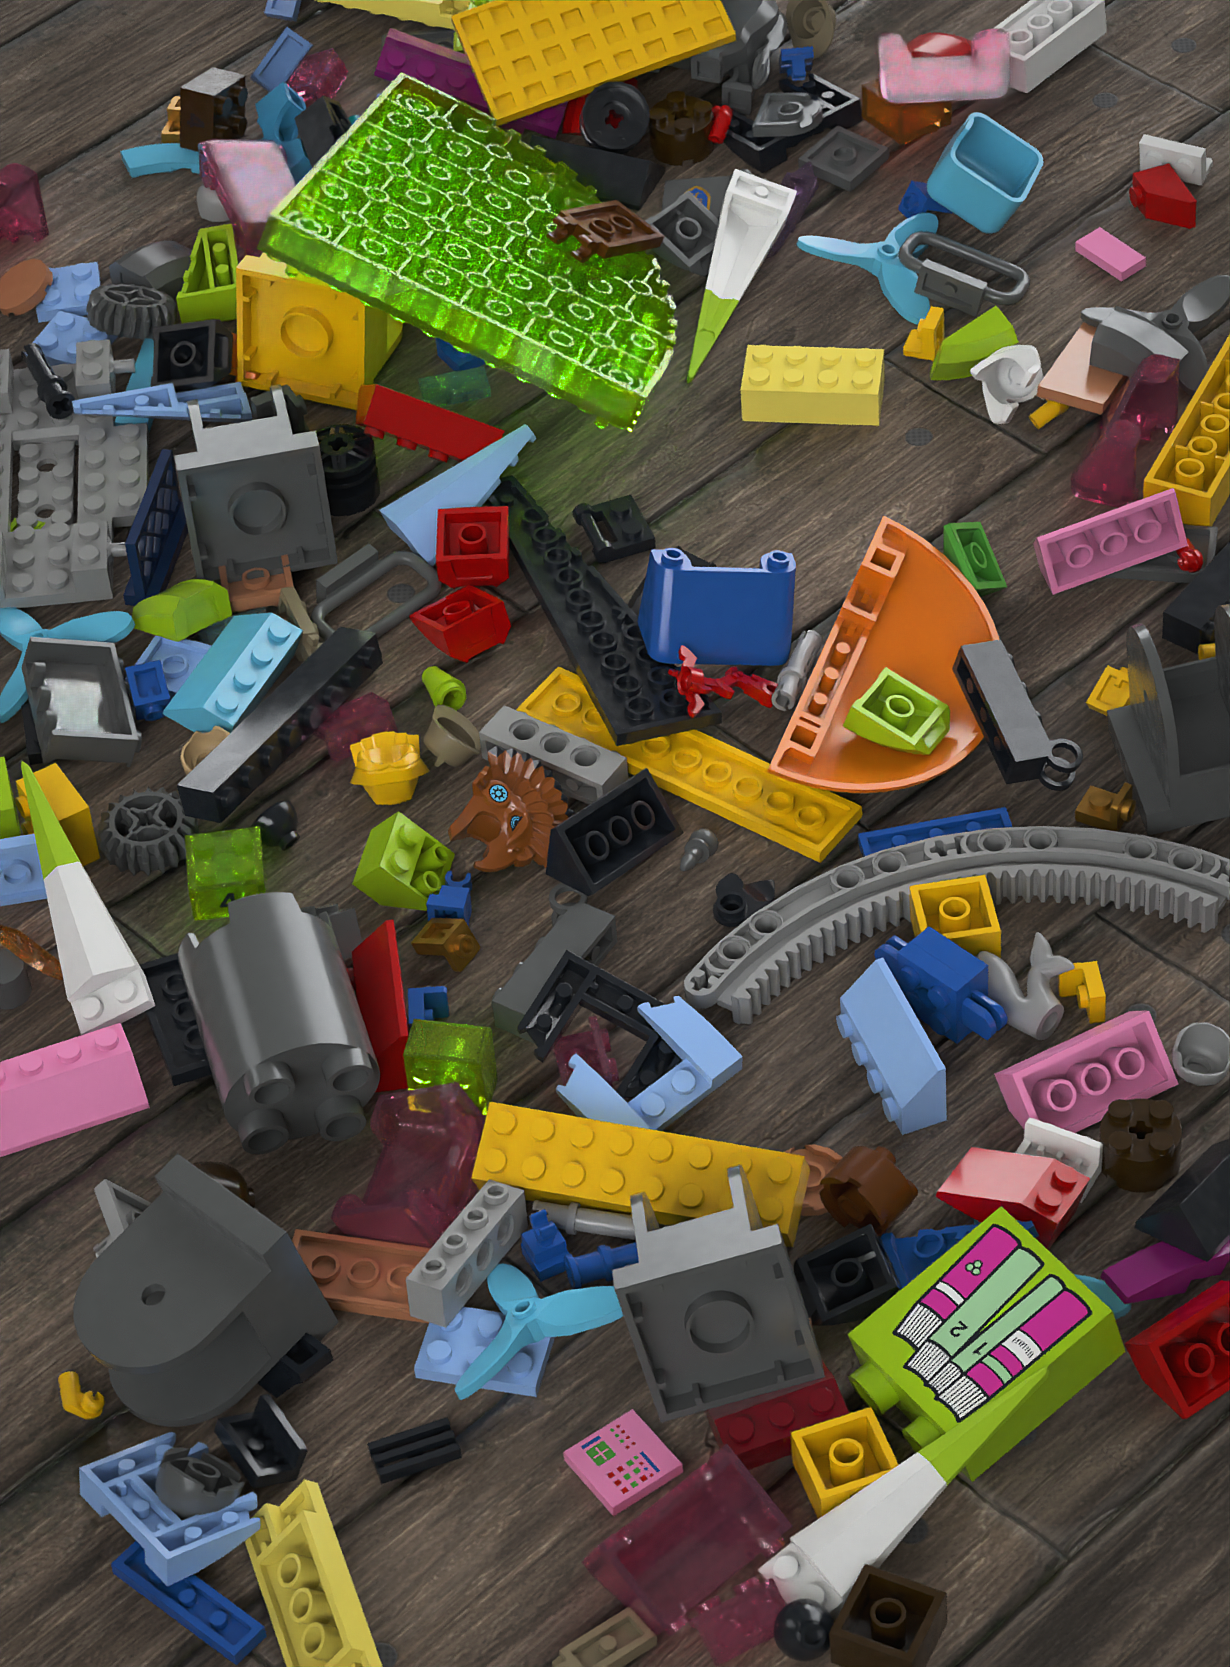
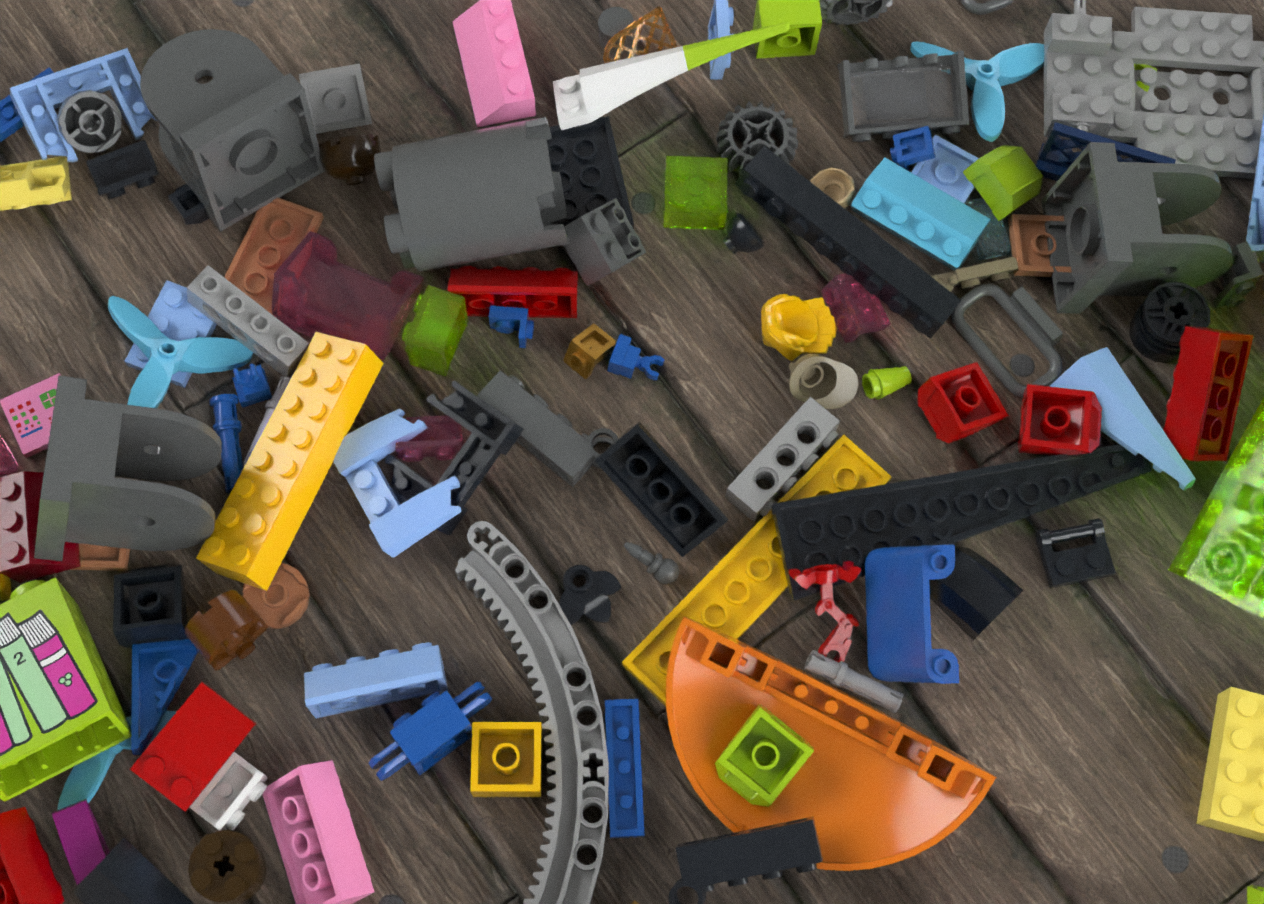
camera: 90 degrees right, 25 degrees up
(68, 808) = (769, 69): yellow brick -> none
(402, 864) = (677, 326): lime slope -> none
(412, 1445) = (93, 251): black tile -> none
(512, 811) = (707, 417): dark orange piece -> none
(971, 553) = (960, 867): bright green slope -> none
(1040, 1010) = (436, 784): light grey piece -> none
(1088, 986) = (410, 865): yellow bracket -> none

